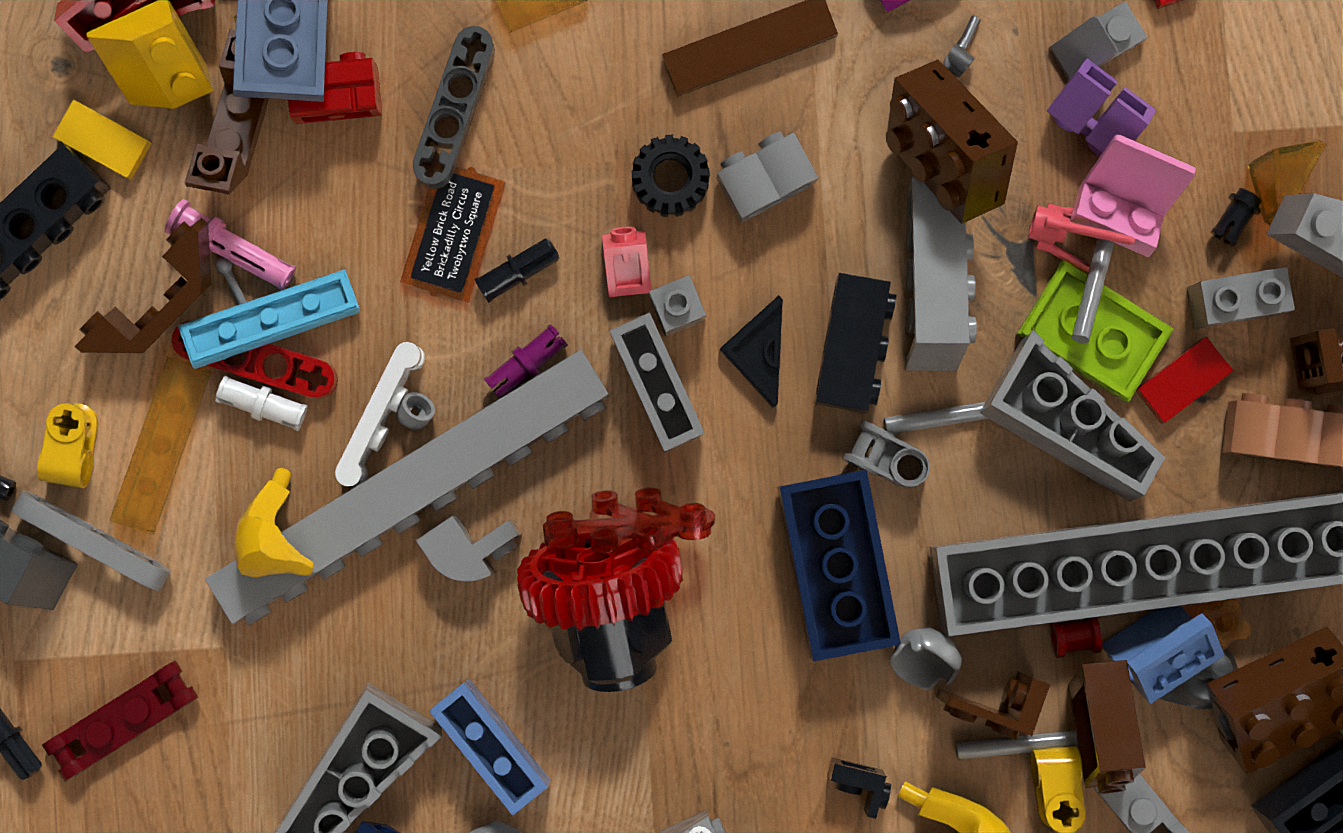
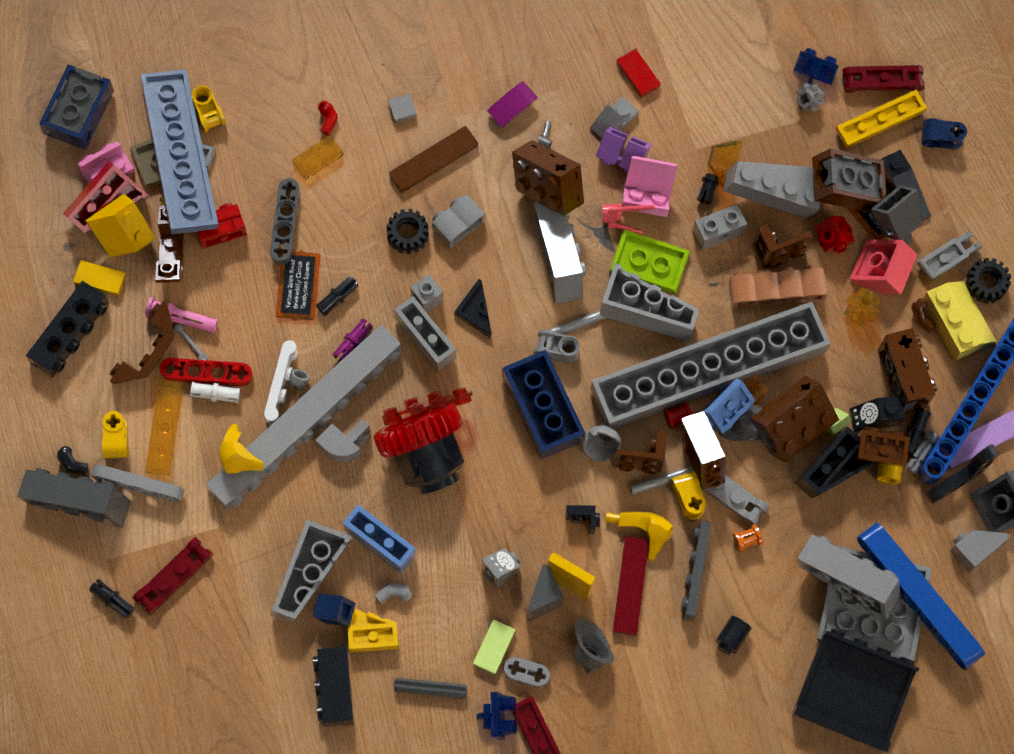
camera: 20 degrees left, 15 degrees down
(269, 319) = (210, 347): medium azure tile -> none
(626, 262) = (394, 279): coral bracket -> none
(854, 343) = (524, 293): black brick -> none
(1092, 291) = (642, 238): light grey bar -> none
(1184, 380) = (702, 275): red tile -> none

